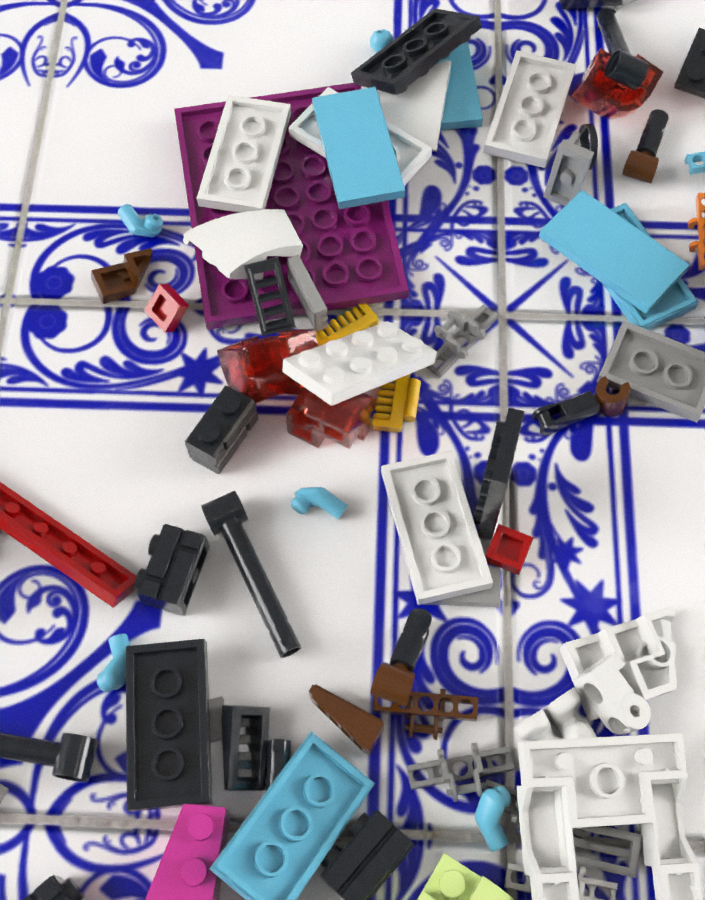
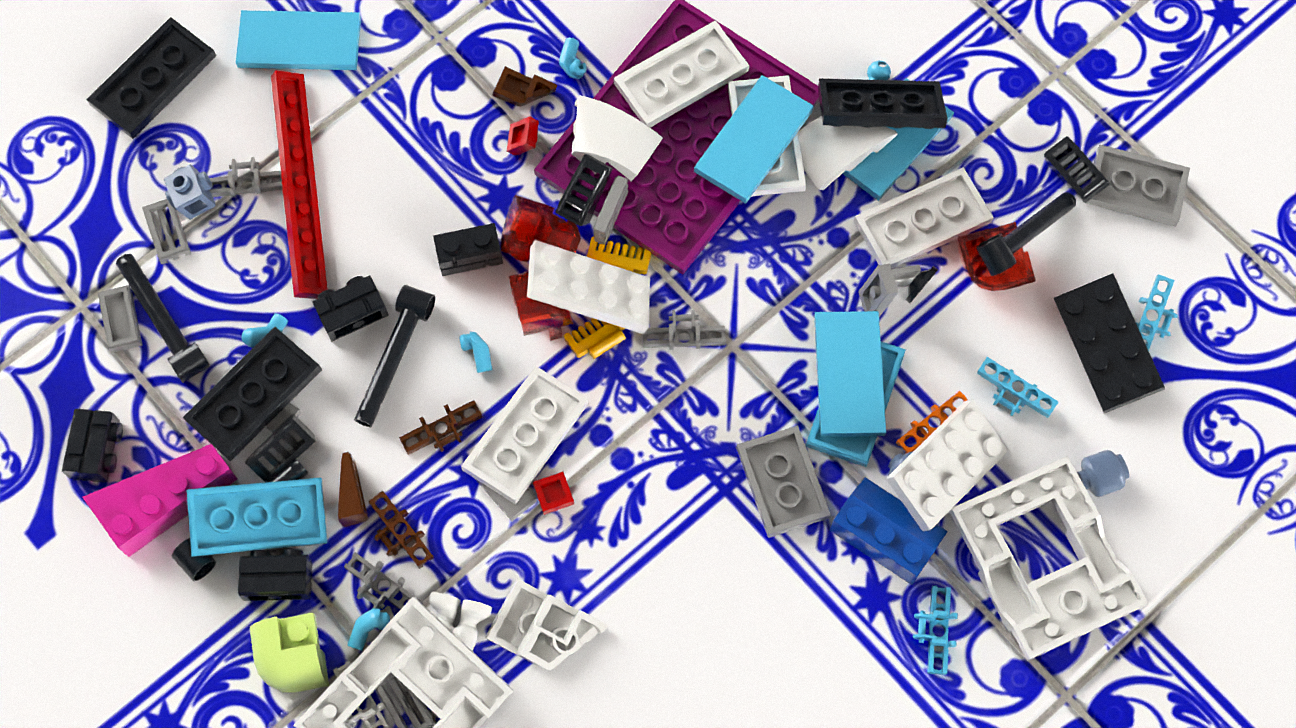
camera: 45 degrees right, 5 degrees up
(362, 571) = (452, 427): none -> reddish brown piece
(396, 679) = (393, 497): piece -> none
(497, 472) = (577, 437): black plate -> none
(582, 407) = (705, 454): black piece -> none
(612, 696) = (504, 634): white leg -> none
(643, 162) = (947, 333): piece -> none

